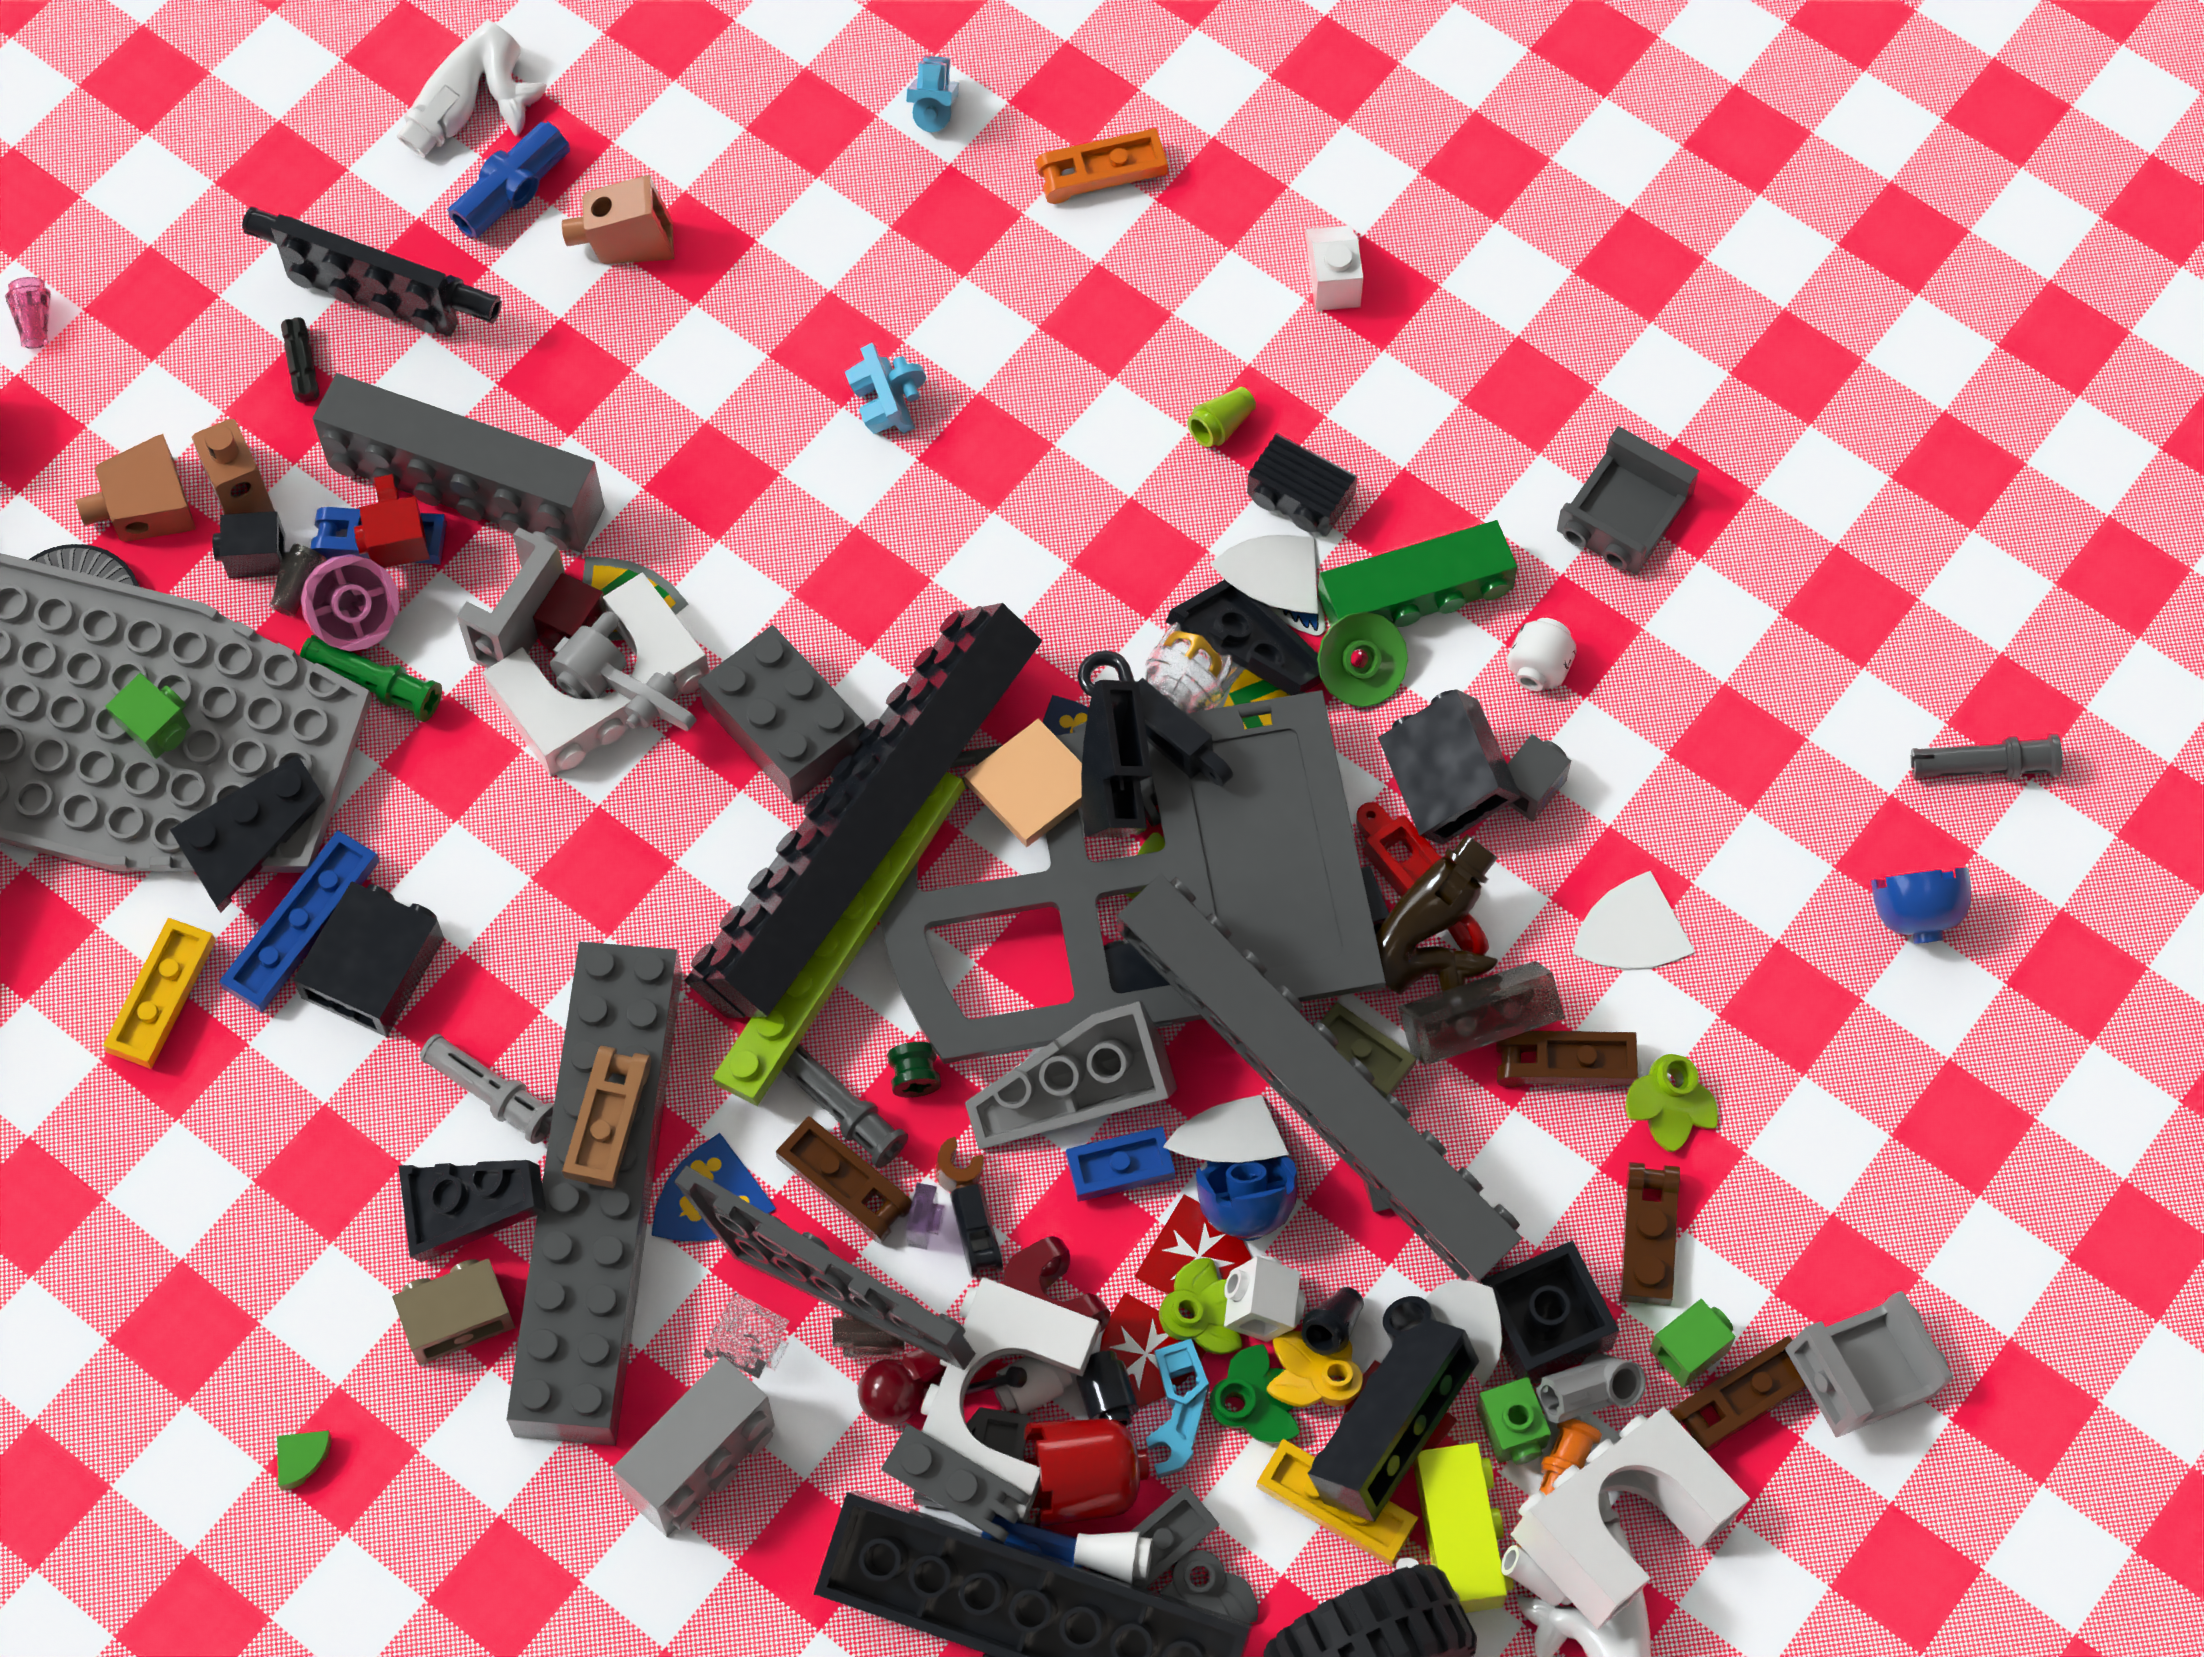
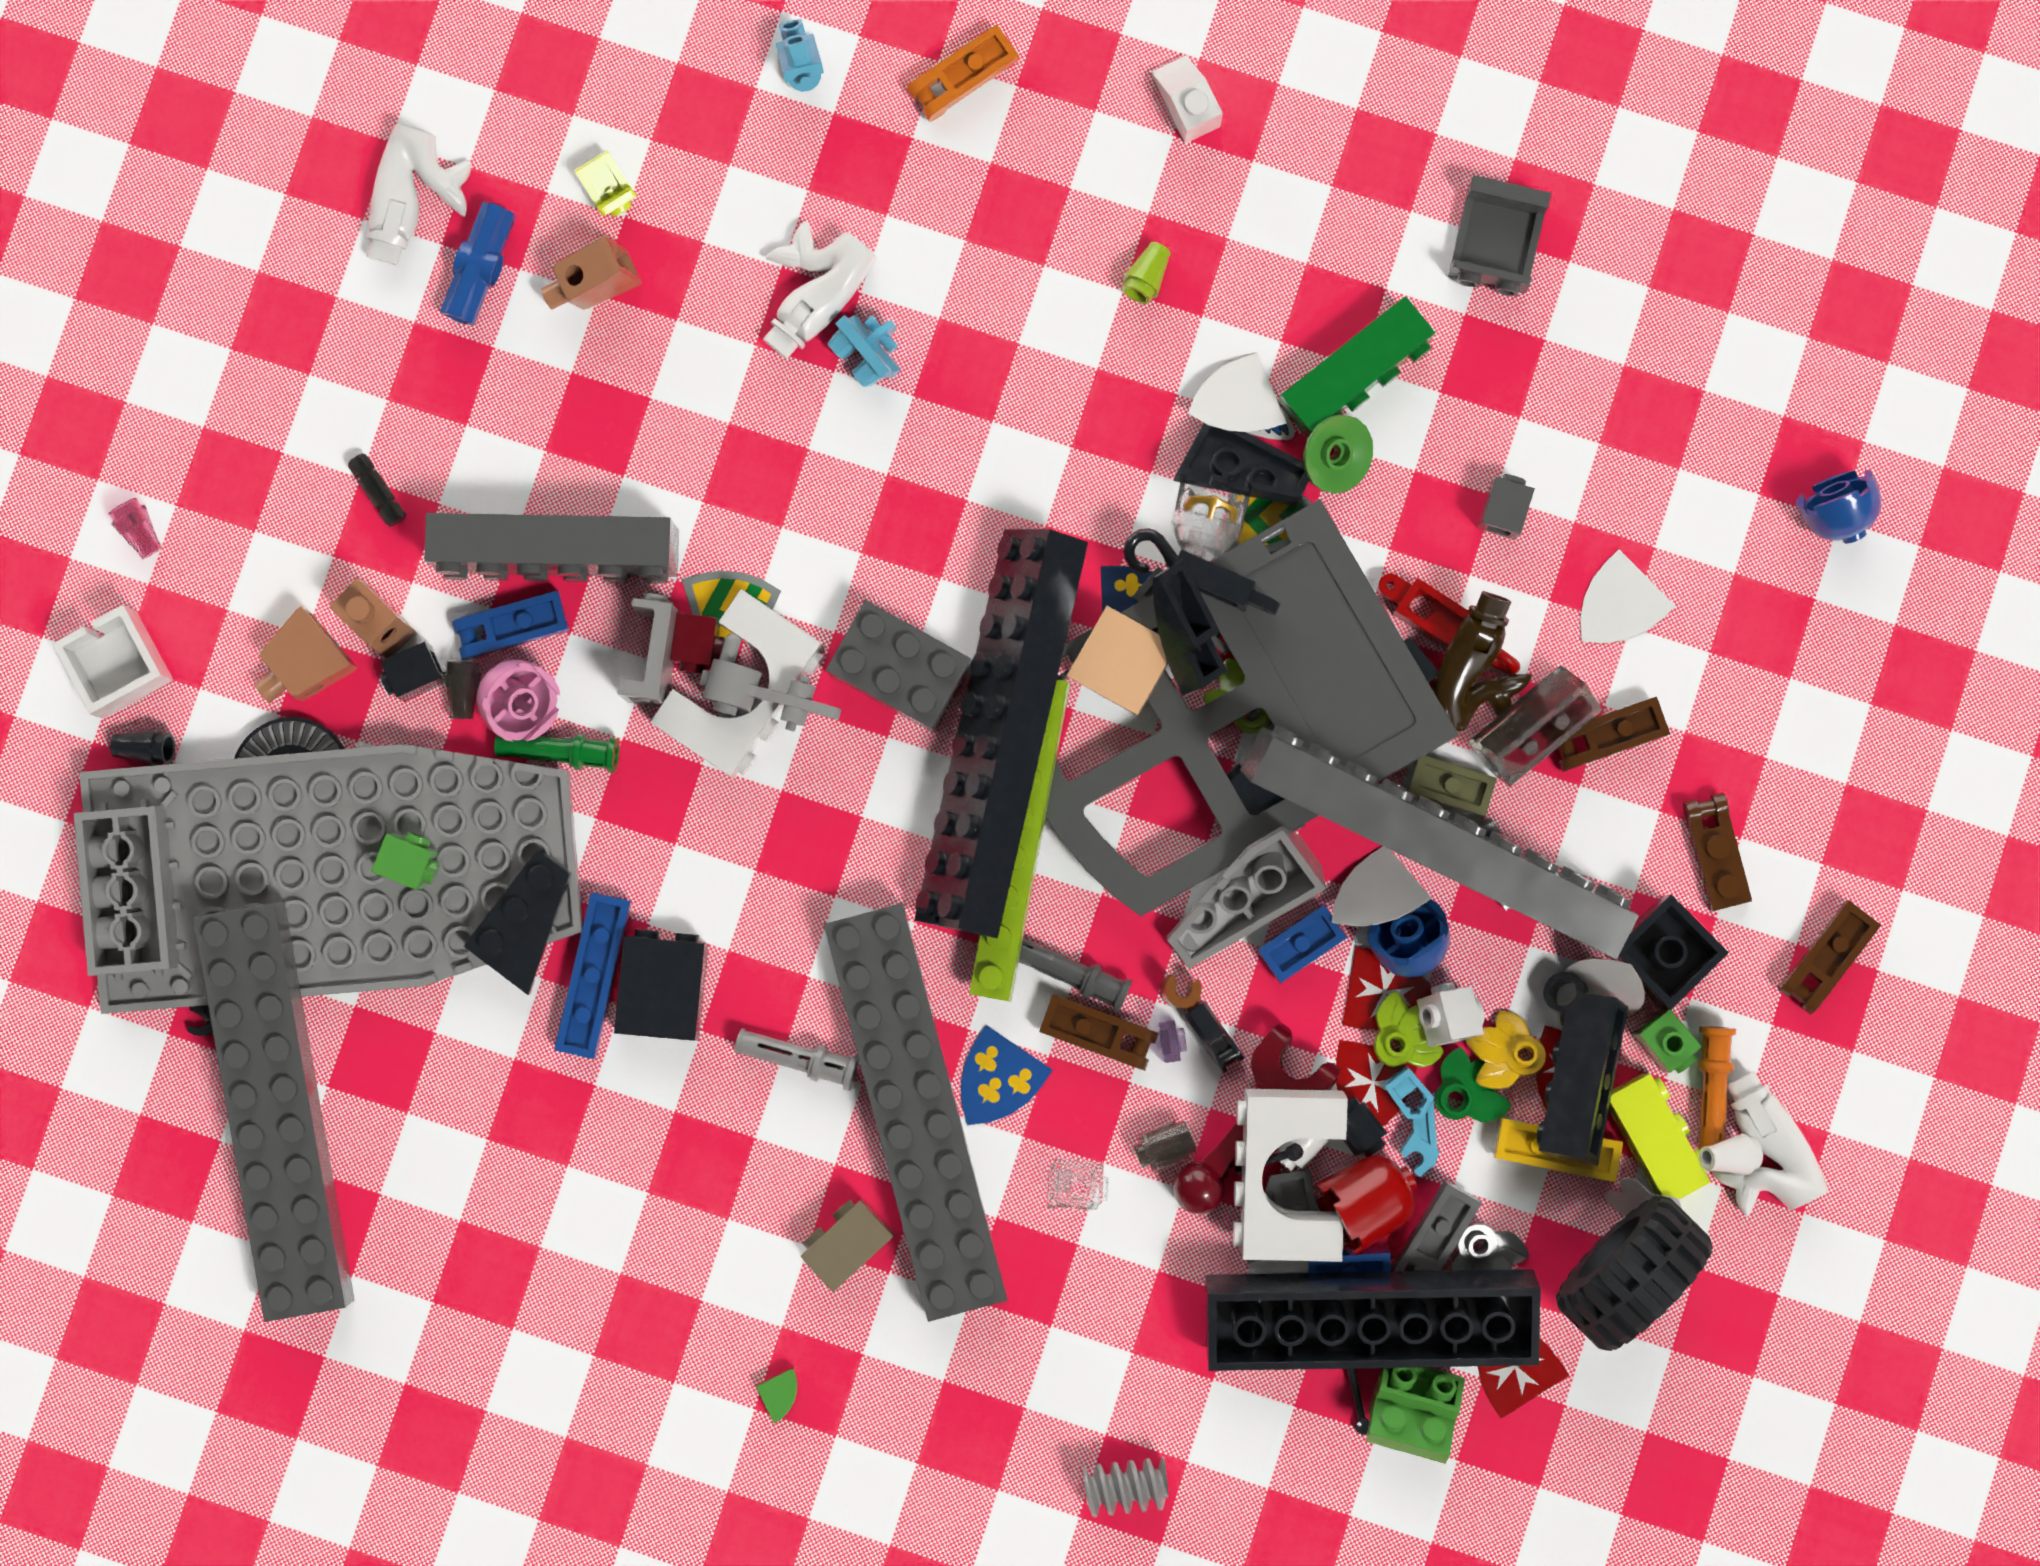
camera: 15 degrees left, 20 degrees up
(159, 993) = (510, 1074): yellow plate -> none
(370, 276) = (390, 403): black plate -> none
(391, 529) = (526, 624): red brick -> none
(463, 1203) = (822, 1160): black wing -> none
(606, 1118) = (909, 1066): medium nougat plate -> none
(677, 147) = (606, 184): none -> bracket
(695, 1447) = (1077, 1290): light grey brick -> none
(810, 1267) = (1126, 1130): dark grey wing -> none
(841, 331) = (817, 302): none -> white piece
(913, 1069) = (1117, 926): dark green wheel -> none
(953, 1481) = (1283, 1256): dark grey hinge -> none
(1115, 1554) = (1418, 1257): white cone -> none
(1301, 485) = (1234, 315): black brick -> none
(1331, 1323) = (1508, 1015): black cone -> none
(1448, 766) = (1440, 527): black brick -> none
(1541, 654) = (1476, 396): white head -> none
(1590, 1387) = (1721, 991): light grey piece -> none
(1651, 1460) = (1741, 1122): white arch -> none
(1671, 1108) = (1700, 746): lime plate -> none
(1693, 1342) = (1781, 933): bright green brick -> none
(1869, 1365) = (1916, 903): light grey panel -> none
(2010, 758) = (1870, 355): dark grey pin -> none

